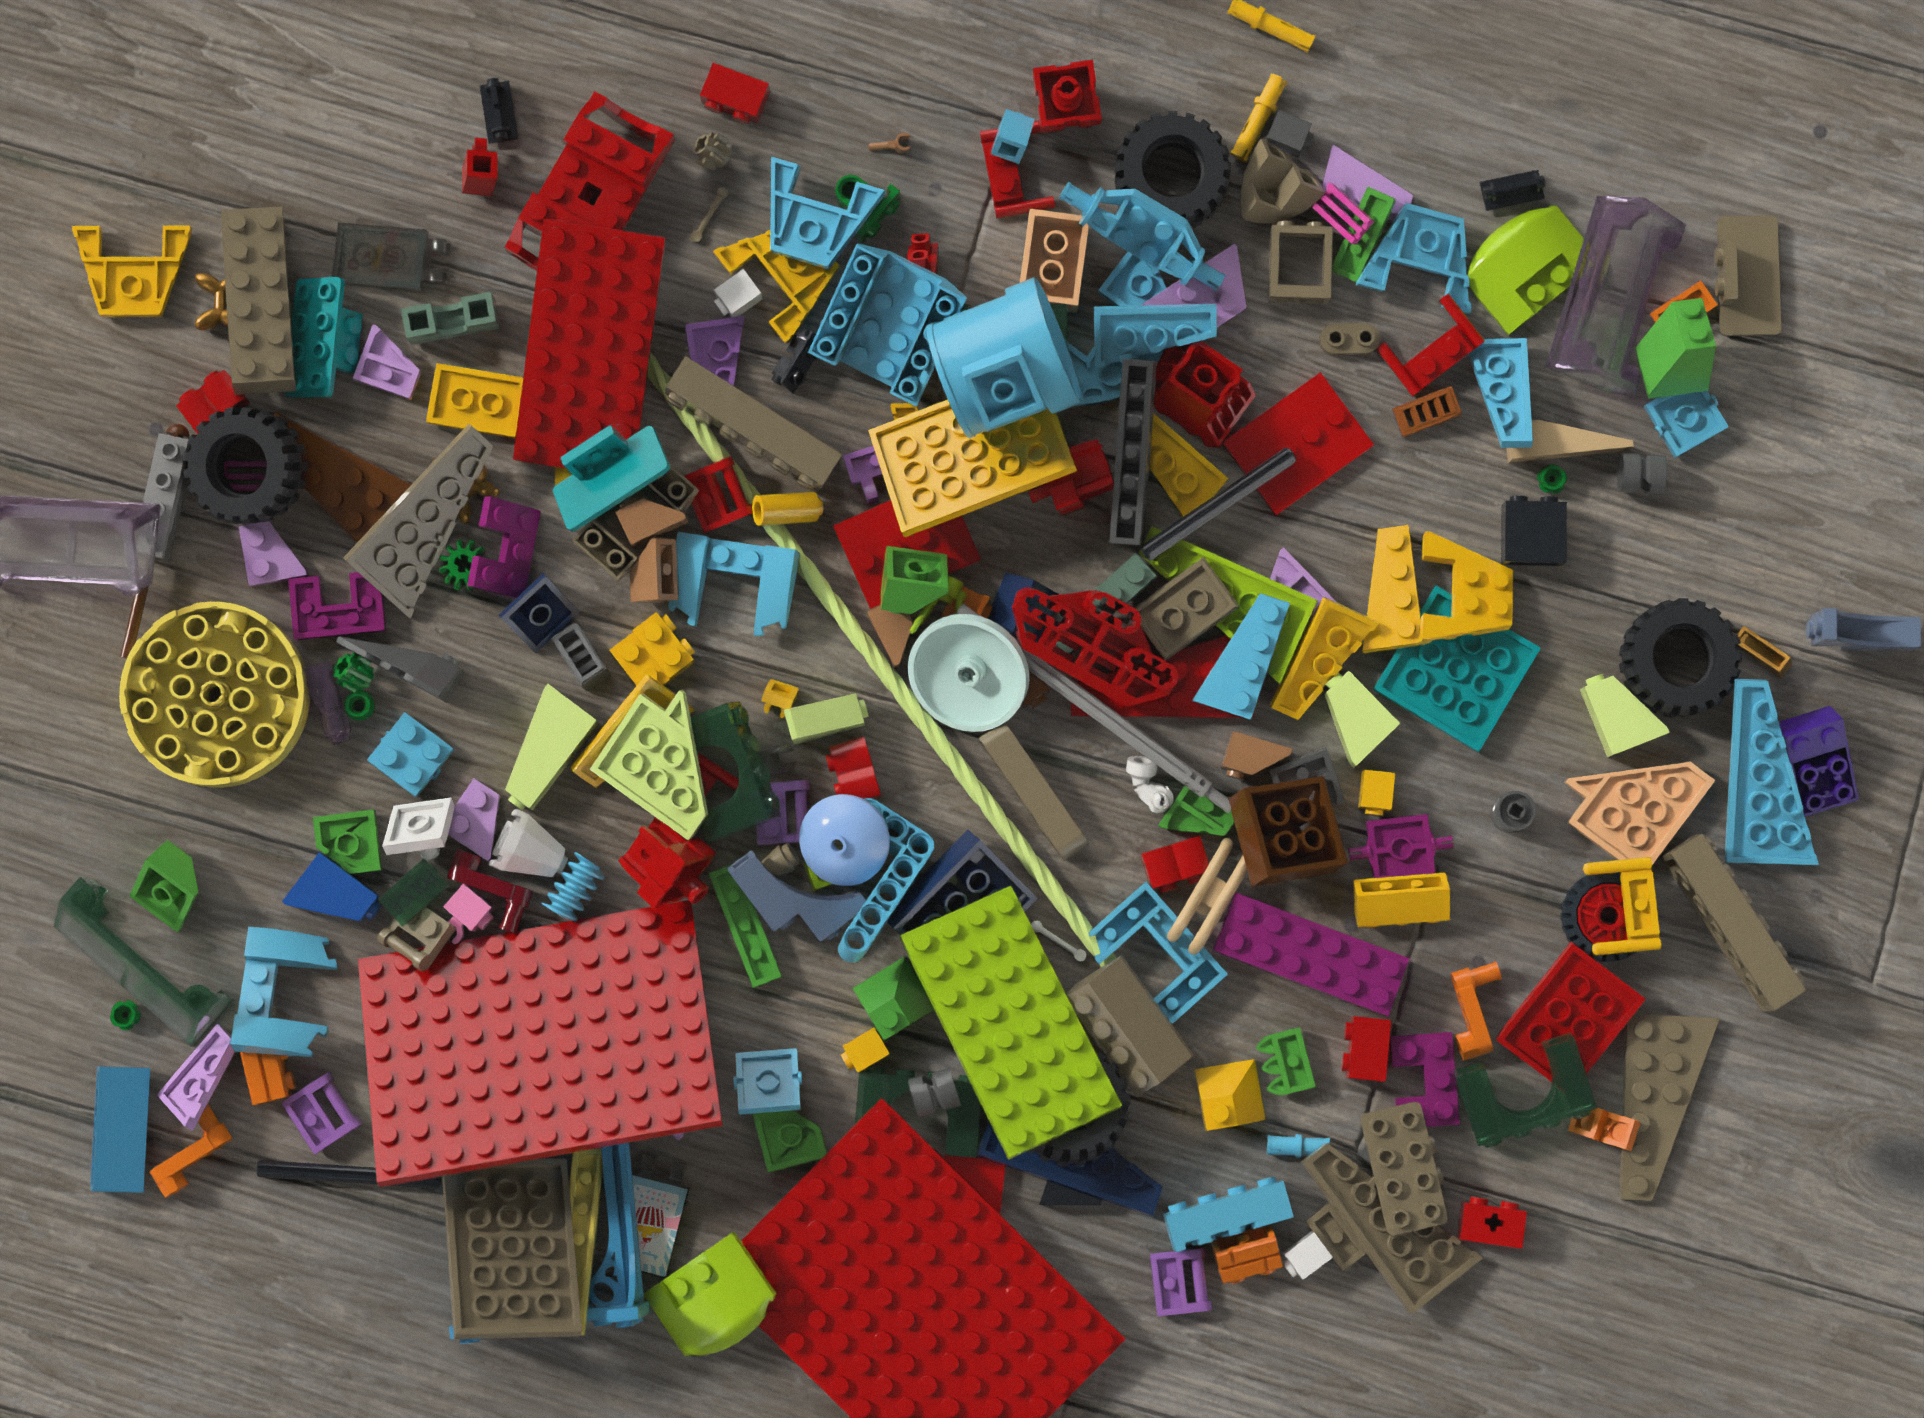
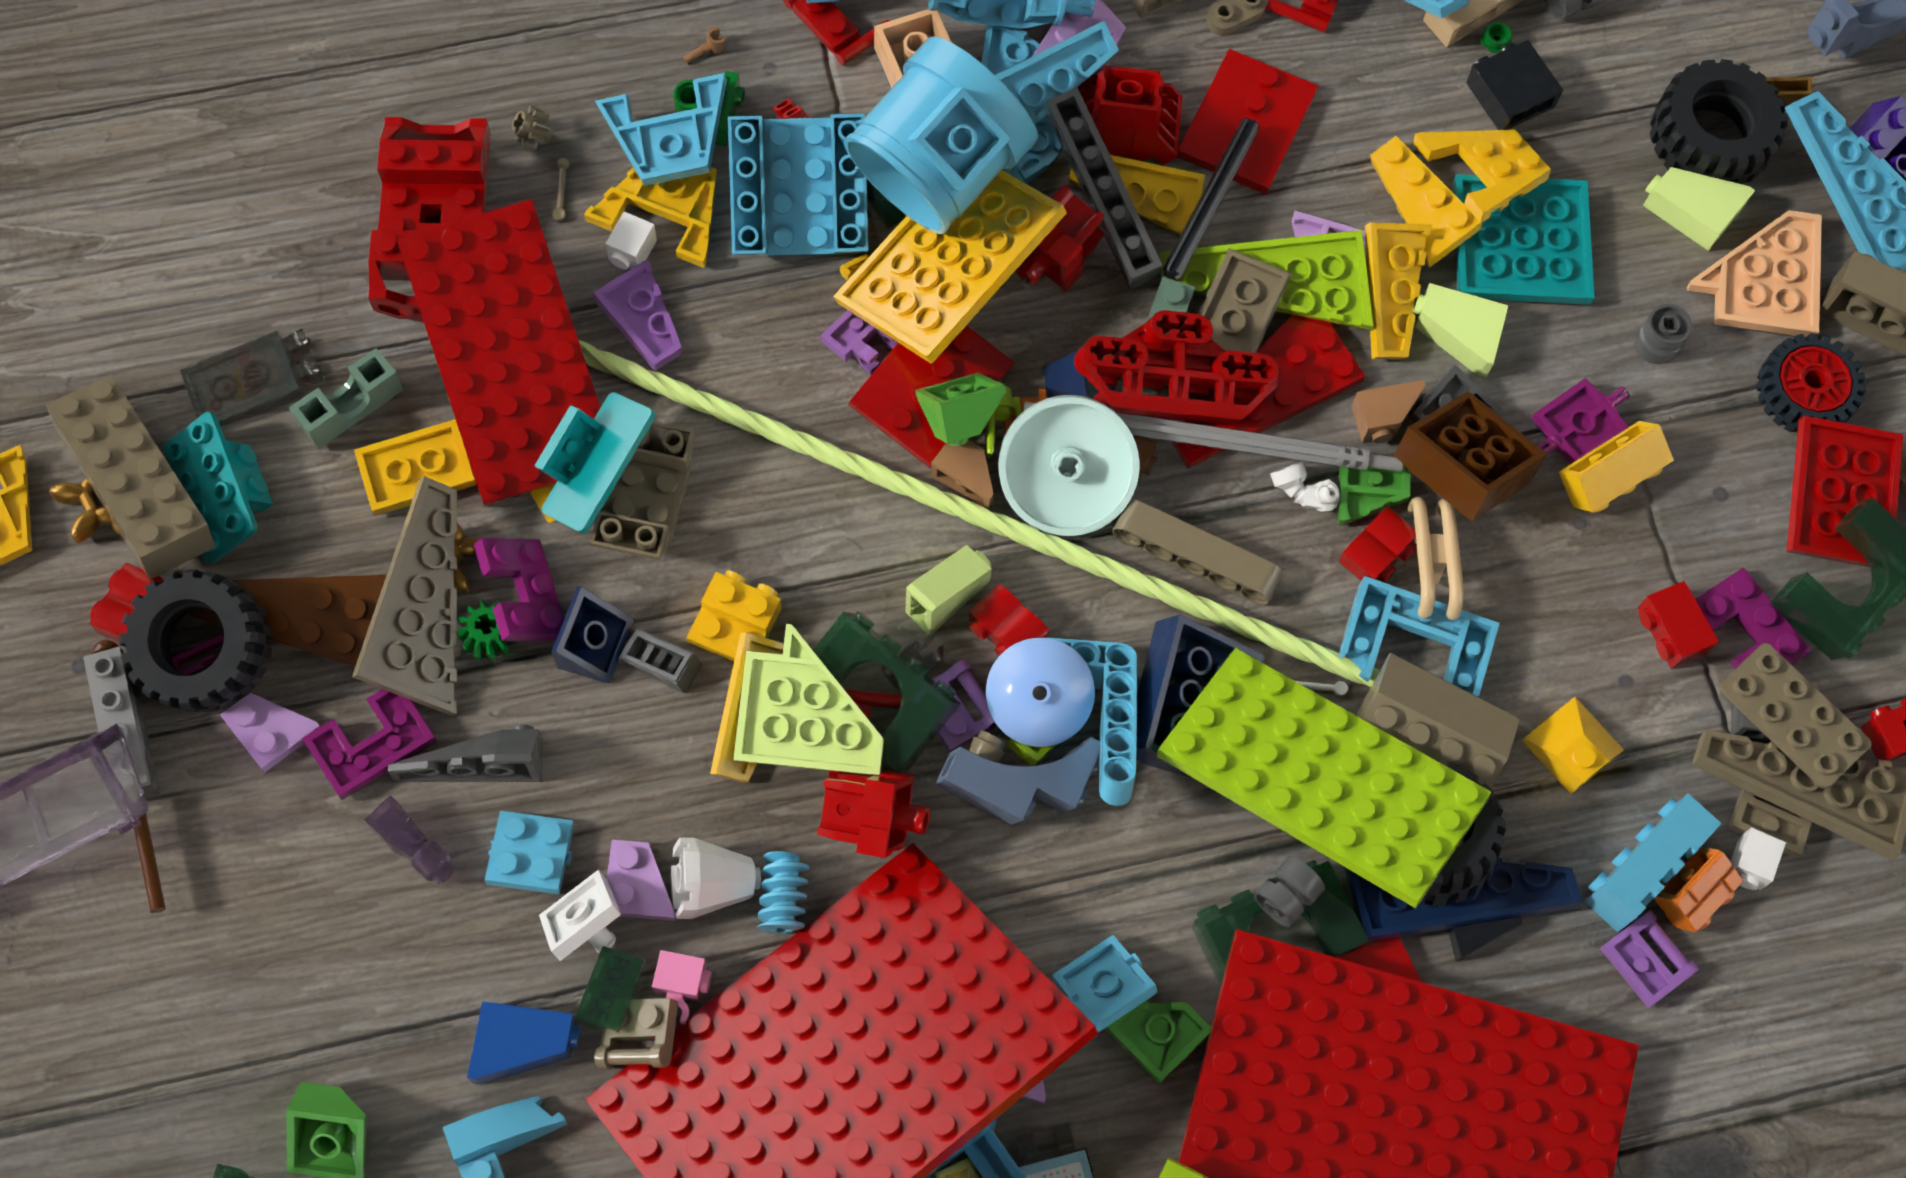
camera: 35 degrees left, 15 degrees down
(169, 688) = (323, 930): light yellow brick -> none
(350, 701) = (443, 820): green plate -> none
(350, 840) = (509, 974): bright green plate -> none
(353, 672) = (423, 796): green gear -> none
(386, 366) = (302, 481): lavender wing -> none
(465, 871) = (726, 936): dark red beam -> none
(479, 169) = (305, 250): red brick -> none
(498, 111) = (295, 193): black hinge -> none
(550, 744) = (676, 761): yellowish green slope -> none
(647, 520) = (659, 485): medium nougat slope -> none
(655, 573) = (694, 535): medium nougat slope -> none
(710, 501) = (712, 443): red plate -> none
(734, 94) = (526, 69): red brick -> none
(746, 929) = (988, 840): bright green plate -> none
(752, 424) = (714, 342): dark tan brick -> none
(771, 564) = (809, 468): medium azure wedge -> none
(779, 695) = (887, 591): yellow tile -> none
(786, 508) = (793, 408): yellow brick -> none
(793, 371) = (725, 286): black hinge -> none
(864, 1050) = (1185, 897): yellow brick -> none
(894, 998) = (1181, 831): bright green slope -> none
(1243, 665) = (1330, 332): medium azure wing -> none
(1289, 1061) = (1610, 678): bright green plate -> none
(1295, 1146) = (1670, 758): medium azure pin -> none
(1310, 955) = (1567, 564): magenta brick -> none
(1376, 792) = (1524, 383): yellow brick -> none
(1451, 400) = (1360, 19): dark orange slope -> none
(1477, 1039) = (1770, 557): orange beam -> none
(1638, 905) = (1838, 350): yellow plate -> none

